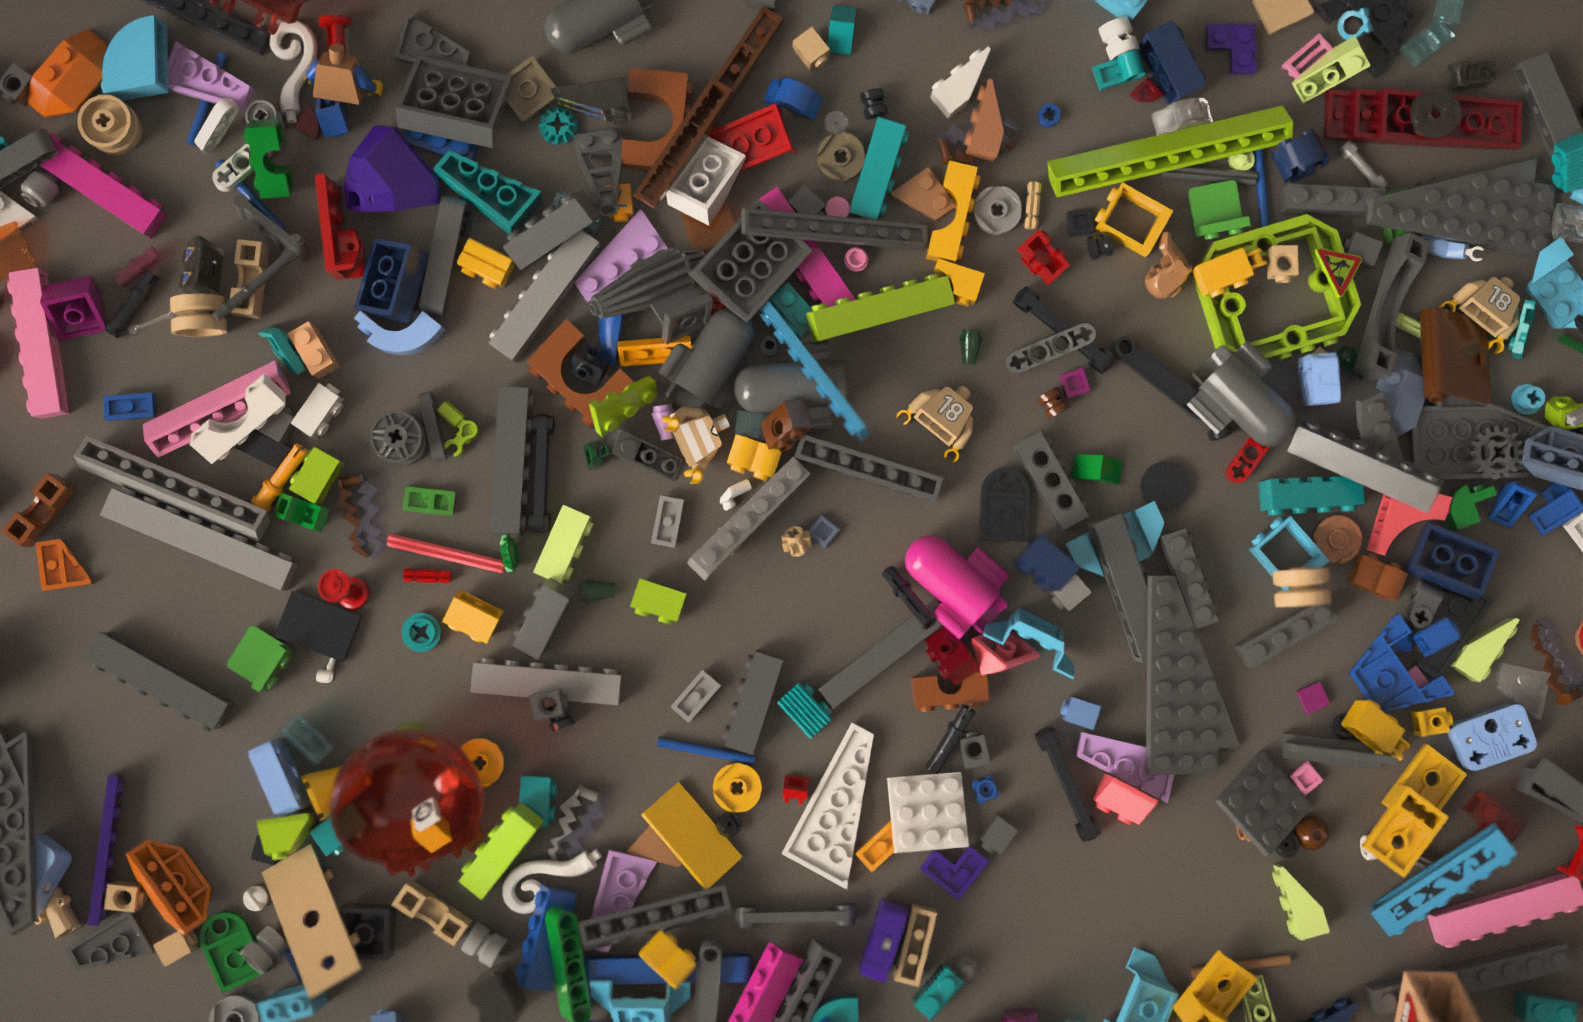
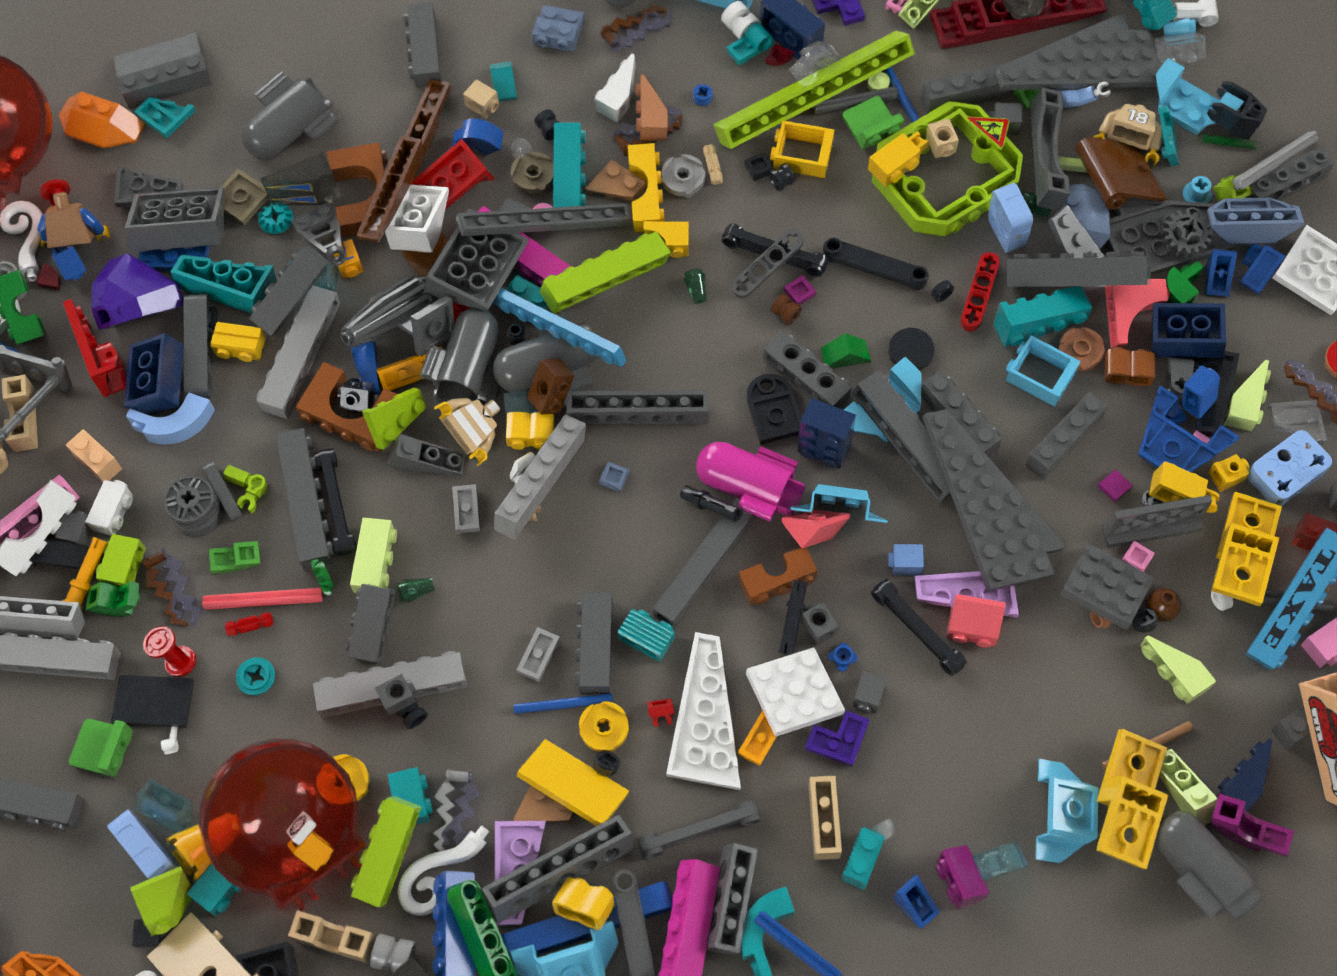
camera: 15 degrees left, 20 degrees down
(282, 349) = (65, 463): teal wing -> none
(473, 616) = (302, 643): yellow brick -> none
(595, 455) = (380, 468): dark green plate -> none
(632, 243) = (368, 283): lavender wing -> none
(658, 412) = (436, 426): lavender cone -> none
(658, 601) = (477, 577): lime brick -> none
(796, 541) = (591, 488): tan gear -> none
(856, 259) = (572, 247): bright pink plate -> none
(883, 940) = (792, 821): dark purple axle -> none
(945, 415) = (692, 344): tan torso -> none
(951, 655) = (767, 541): dark red brick -> none
(1042, 257) = (733, 199): red cylinder -> none
(1070, 594) = (859, 460): light grey brick -> none
(1171, 271) = (850, 176): medium nougat head -> none
(1235, 391) = (942, 249): dark grey piece -> none
(1300, 157) = (926, 60): dark blue brick -> none
(1302, 586) = (1063, 380): tan wheel -> none
(1349, 150) = (966, 50): light grey bar -> none

